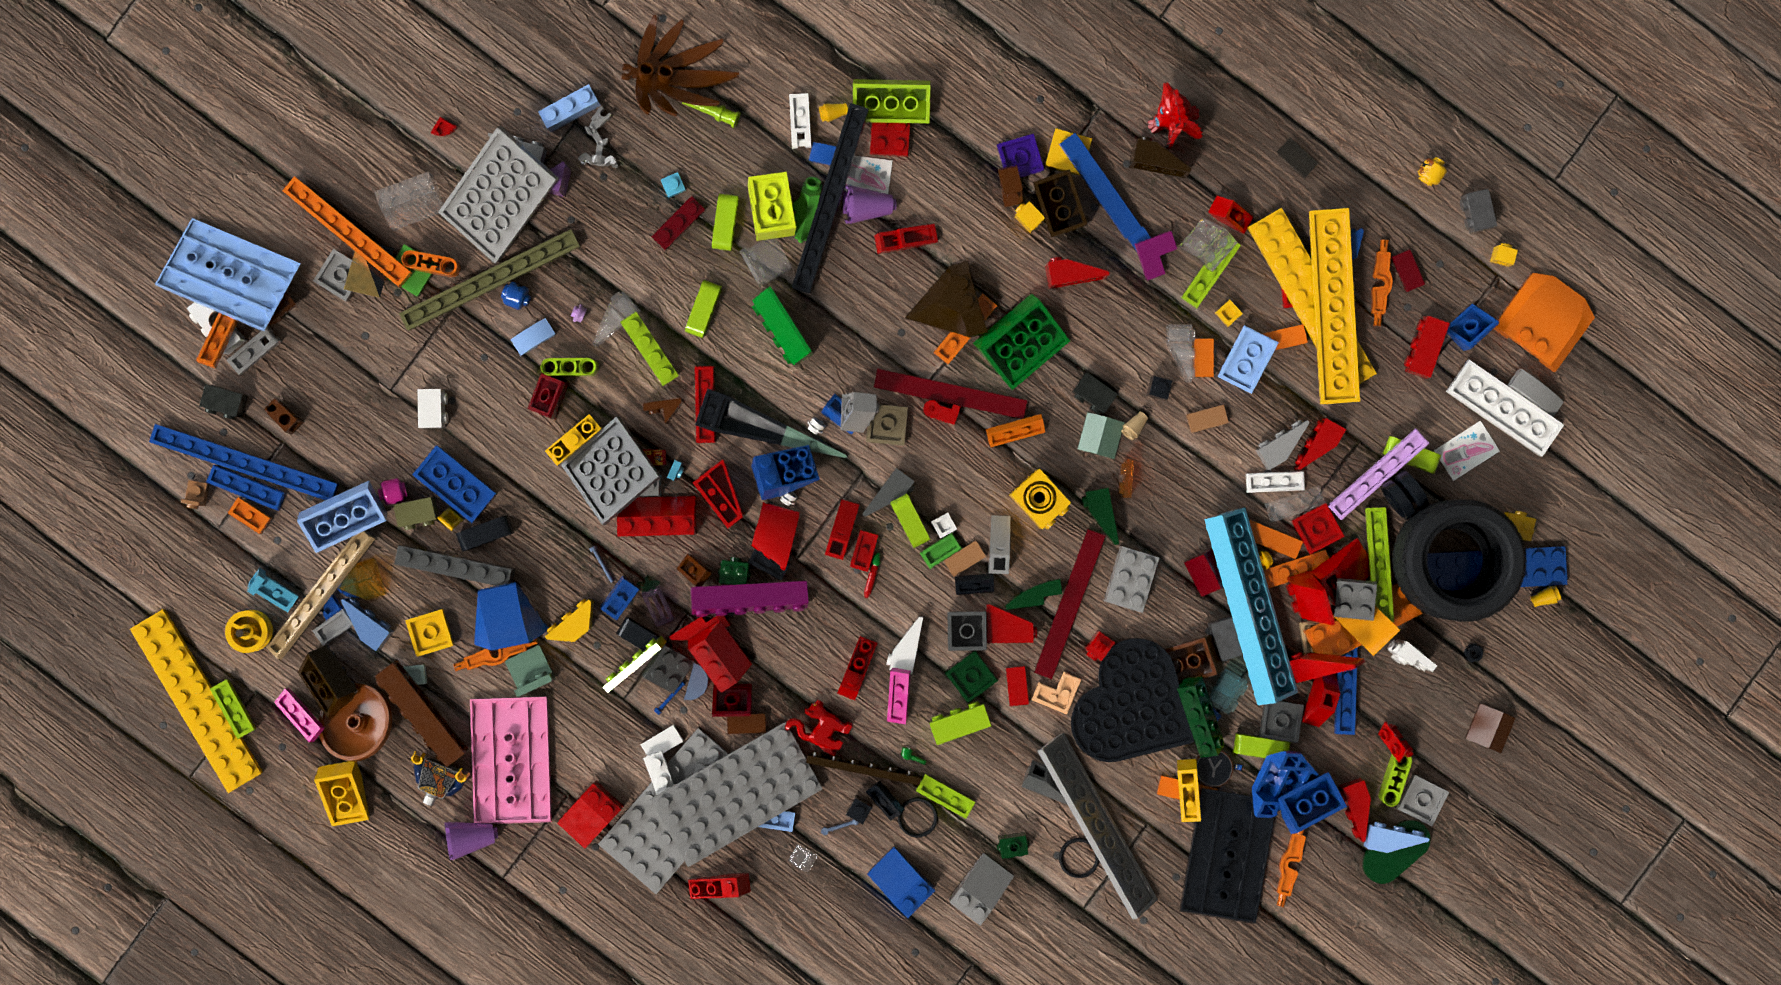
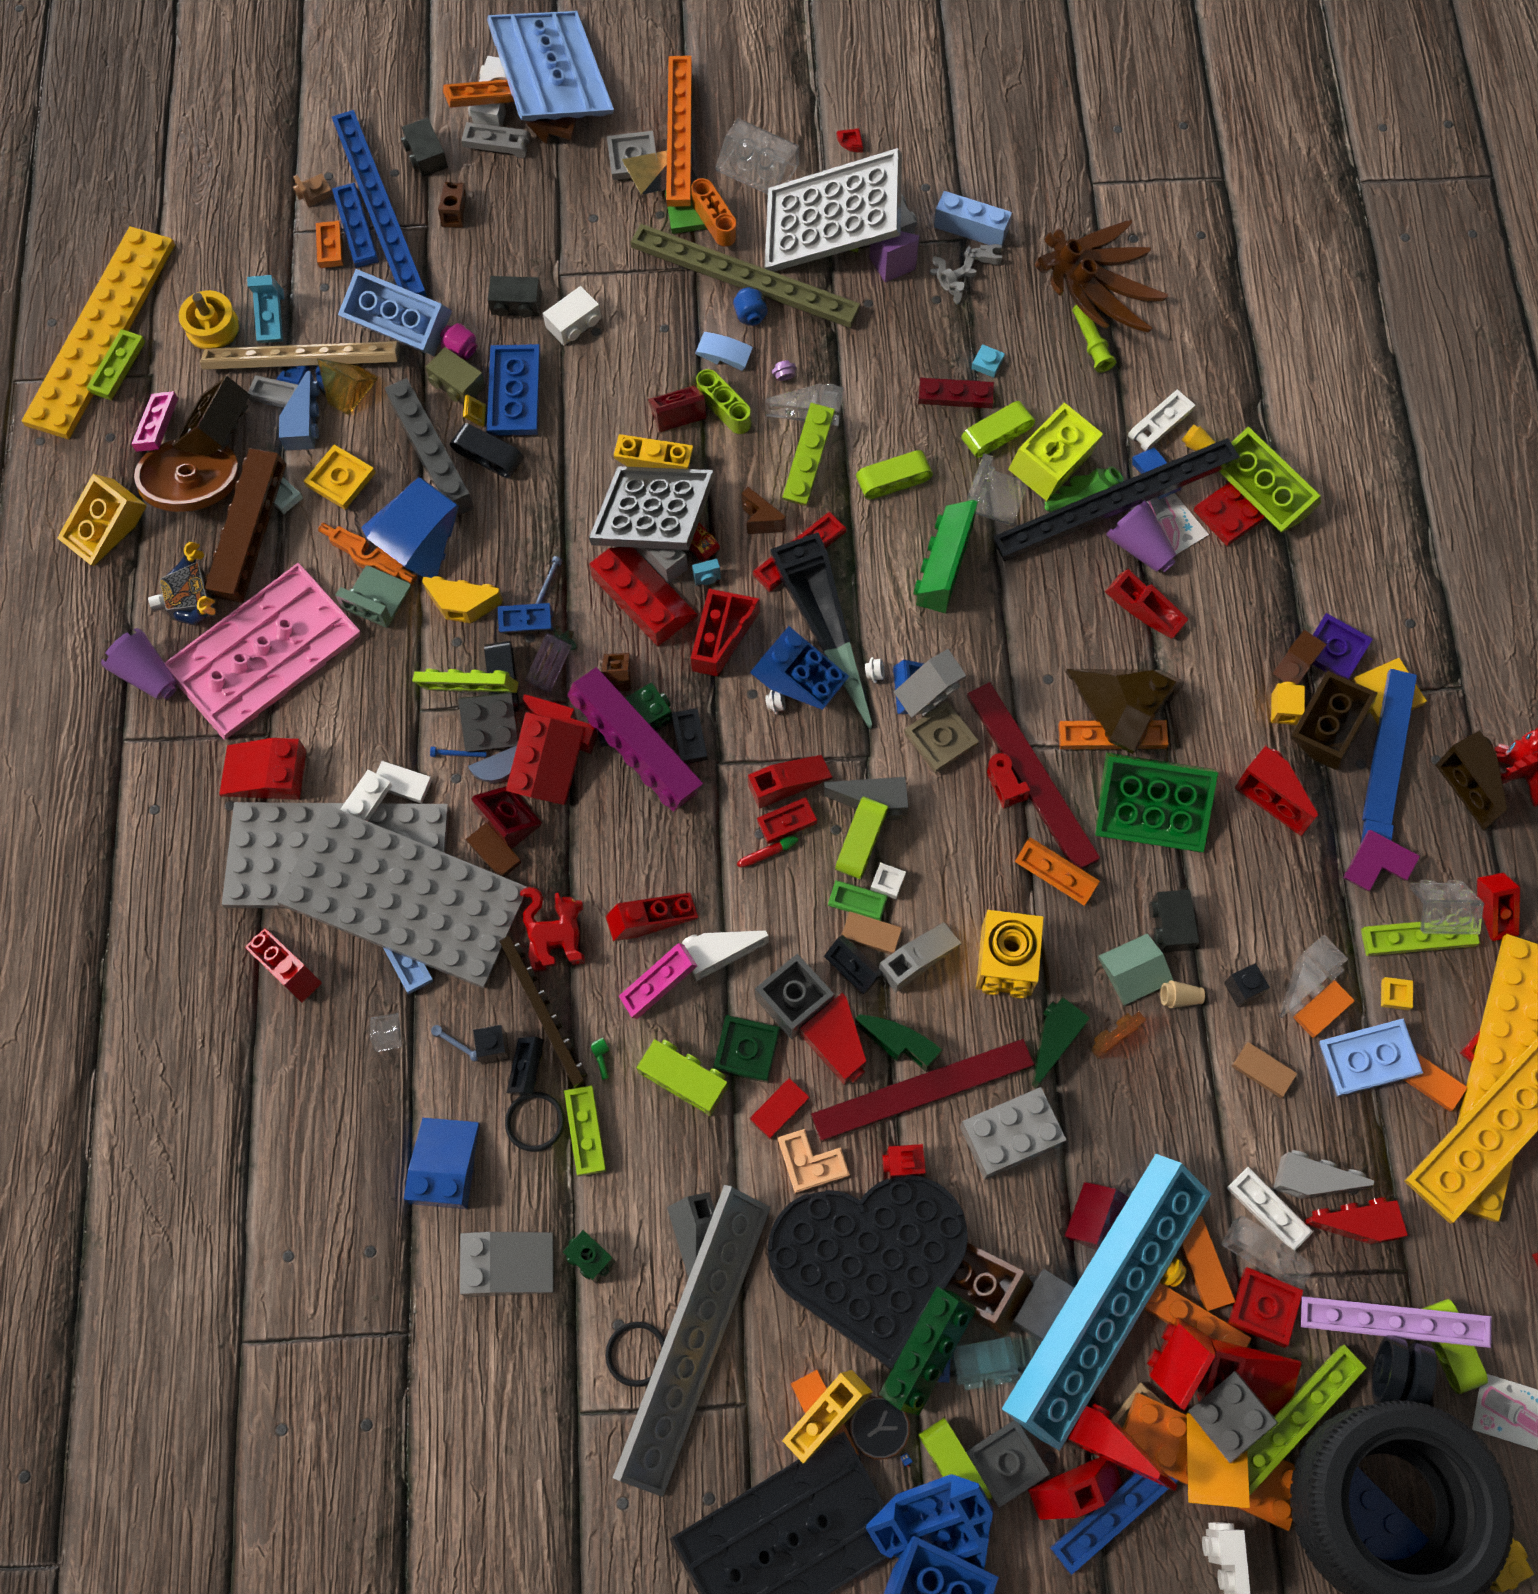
camera: 50 degrees right, 20 degrees down
(387, 432) = (514, 296): none -> pearl dark grey brick
(775, 533) = (727, 715): red slope -> none

